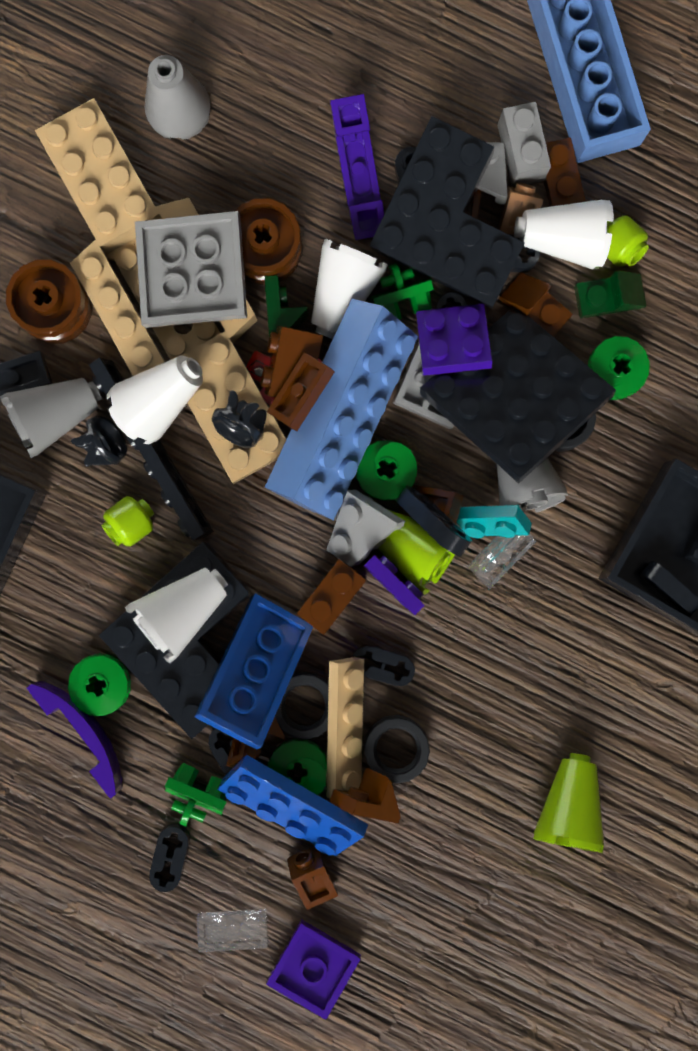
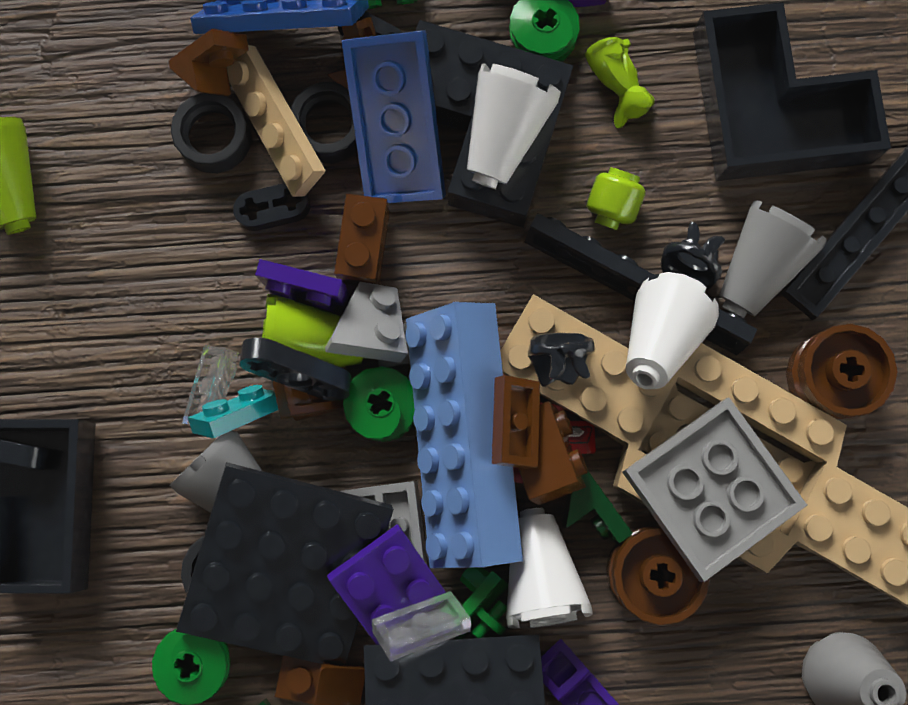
camera: 155 degrees right, 5 degrees down
(67, 614) = (616, 71): none -> lime animal
(306, 753) = (294, 75): green piece -> none
(446, 296) = (421, 625): none -> clear plate

